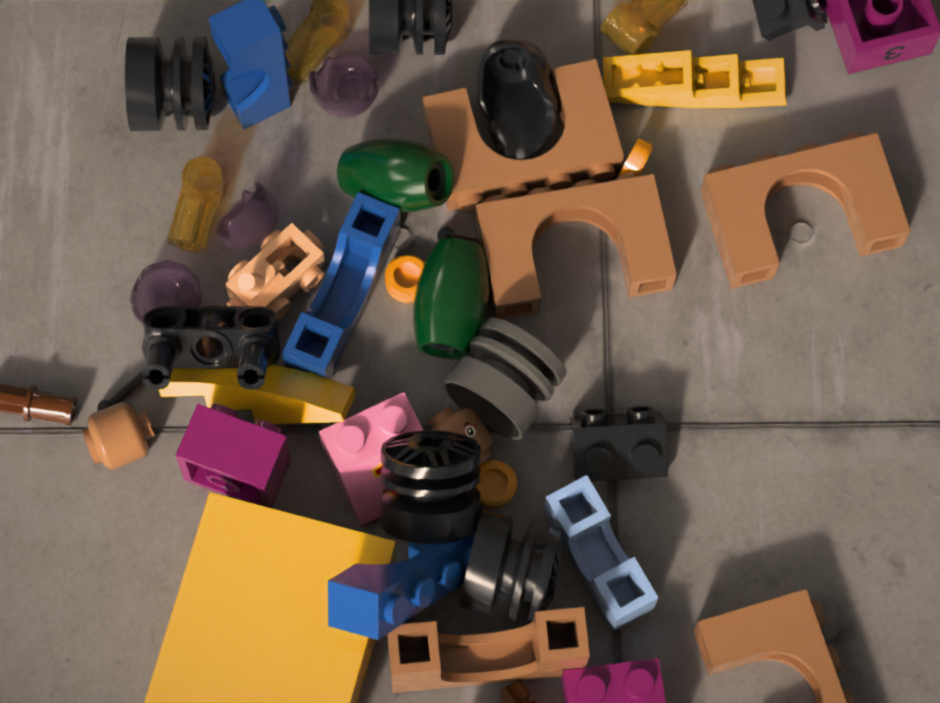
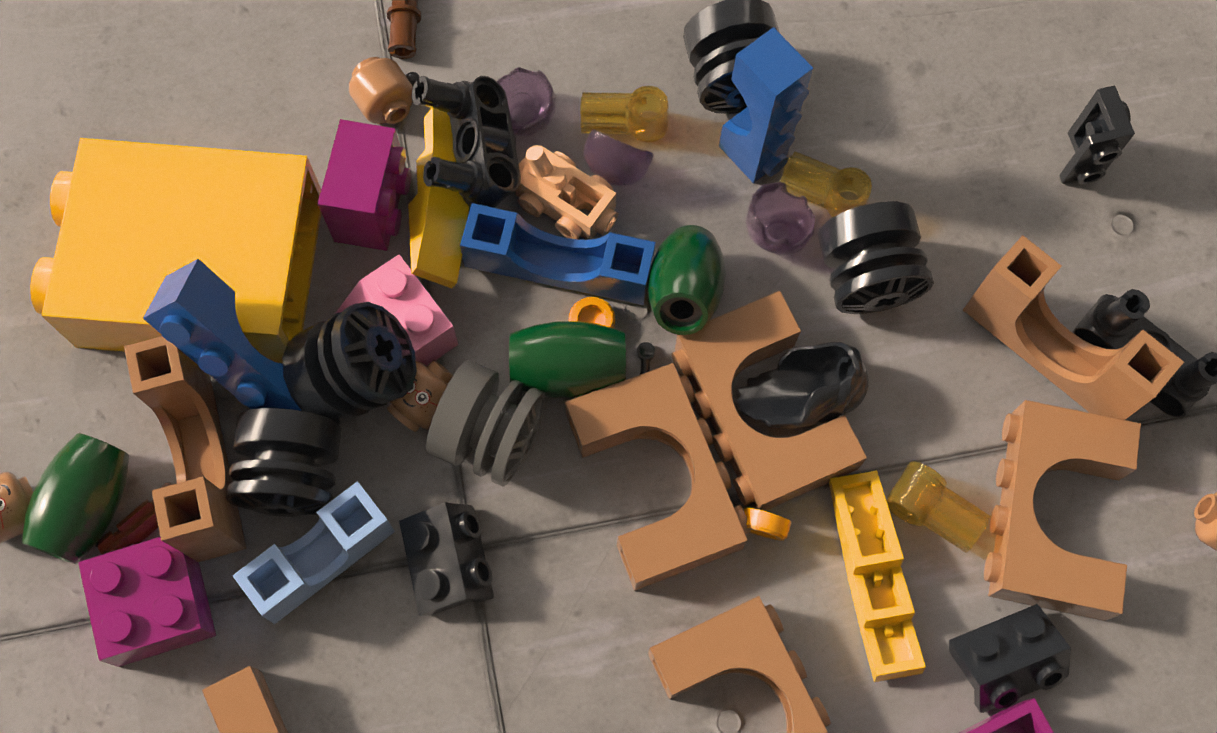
camera: 80 degrees right, 0 degrees up
(496, 484) = (387, 441): light orange tile -> none

